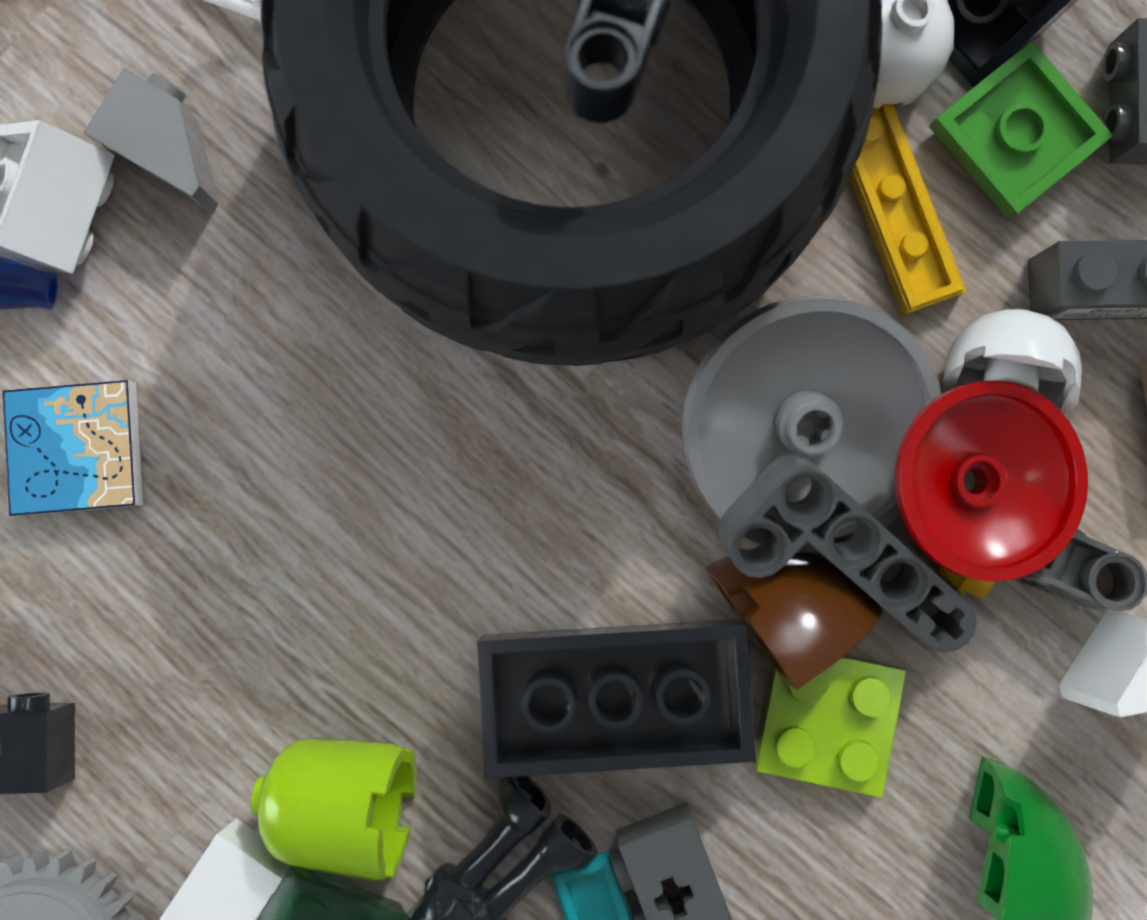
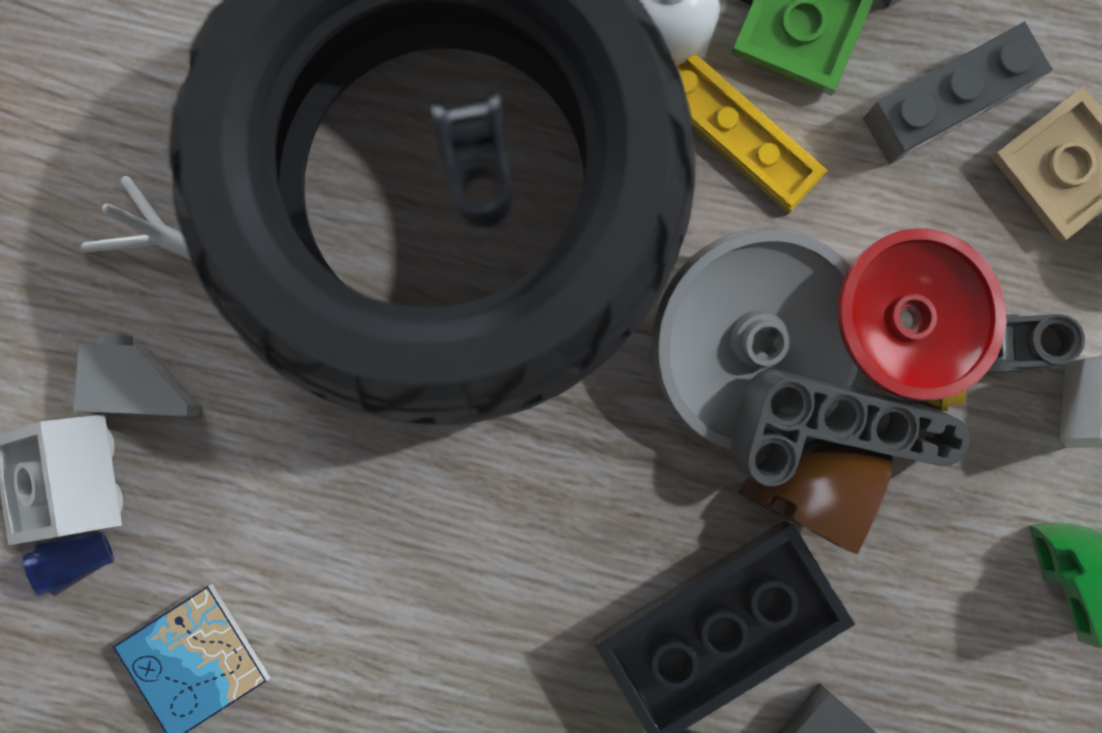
camera: 25 degrees left, 0 degrees up
(833, 727) = (902, 564): lime plate -> none
(1020, 350) = (890, 201): white cylinder -> none

